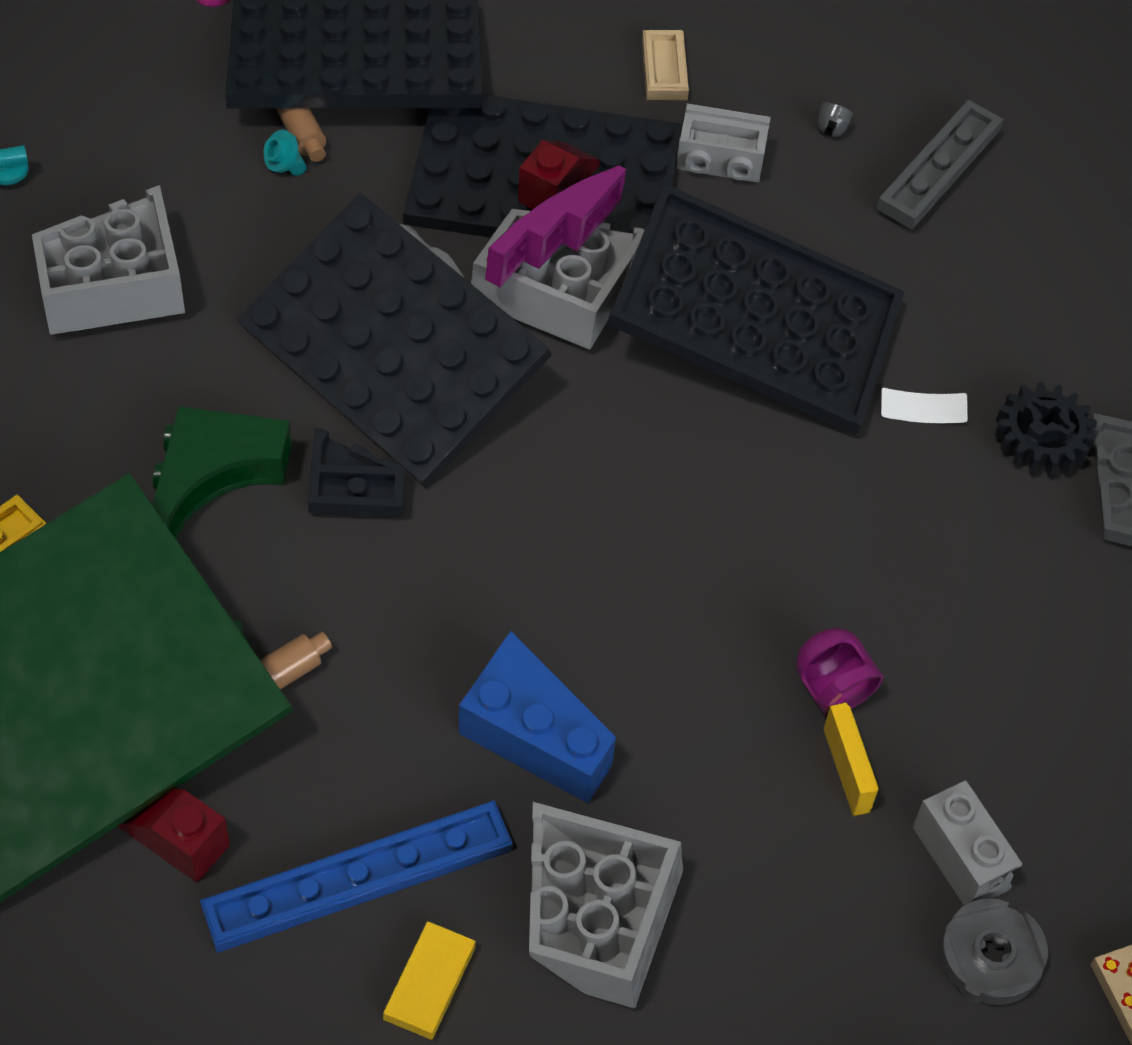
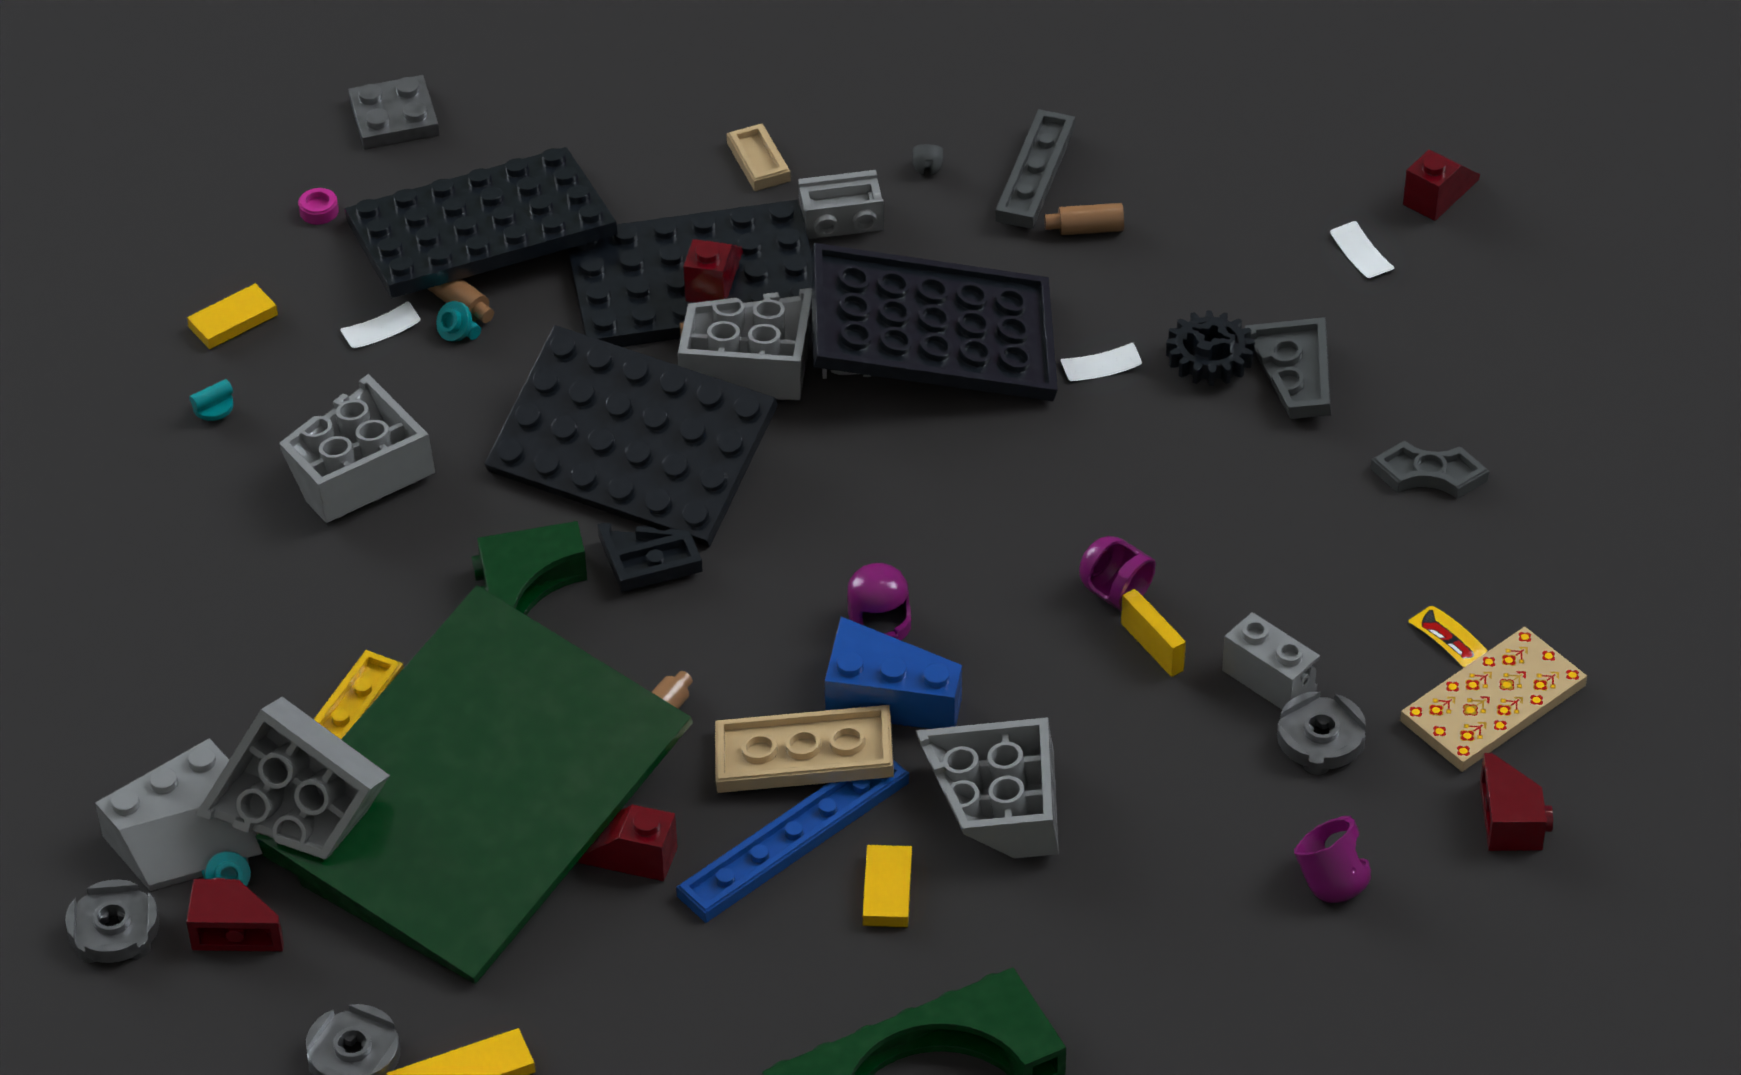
camera: 15 degrees left, 10 degrees down
(73, 78) = (232, 316): none -> yellow tile
(211, 134) = (382, 326): none -> white sticker
(411, 774) = (803, 748): none -> tan tile
(561, 219) = (738, 298): magenta slope -> none
(565, 611) = (879, 590): none -> magenta helmet
(972, 236) = (1086, 219): none -> medium nougat cylinder

